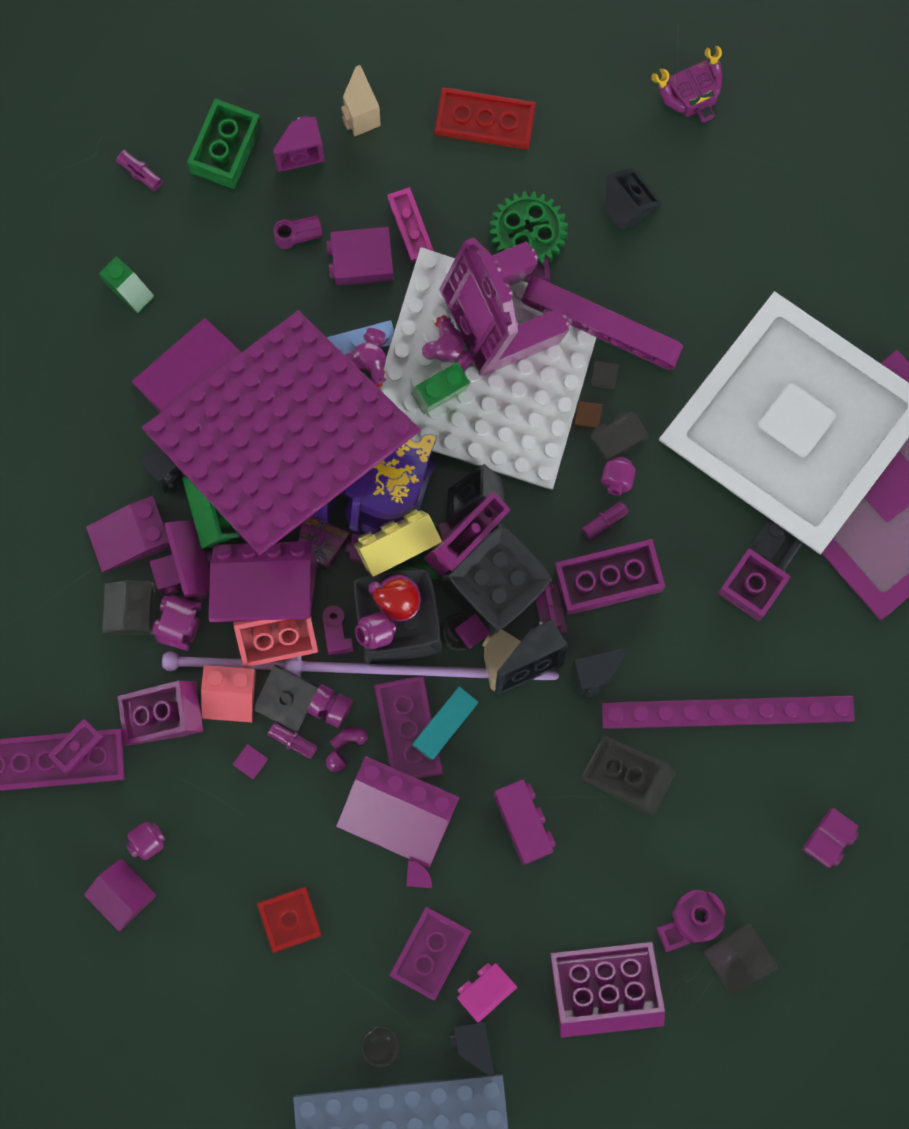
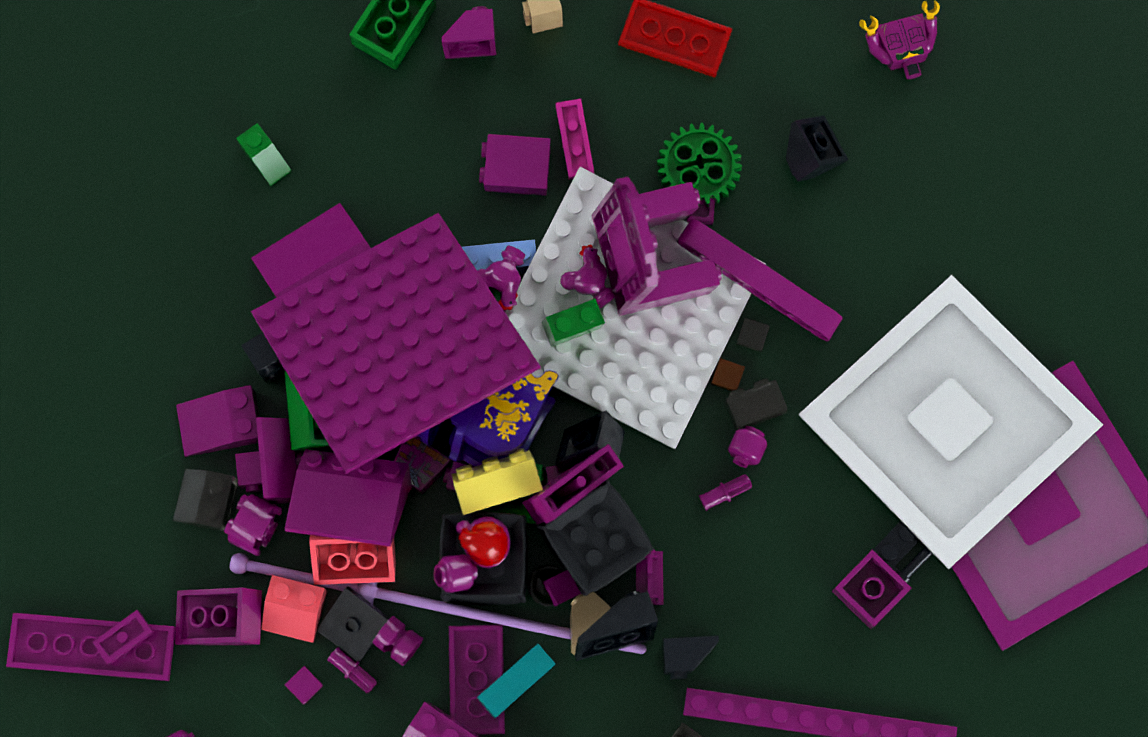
camera: 15 degrees right, 0 degrees up
(139, 170) = (298, 33): magenta pin -> none
(300, 231) = (456, 126): magenta piece -> none
(333, 623) = (417, 551): magenta leg -> none
(336, 762) = (394, 701): magenta hinge -> none
(349, 734) = (413, 674): magenta arm -> none
(609, 577) = (718, 554): magenta brick -> none

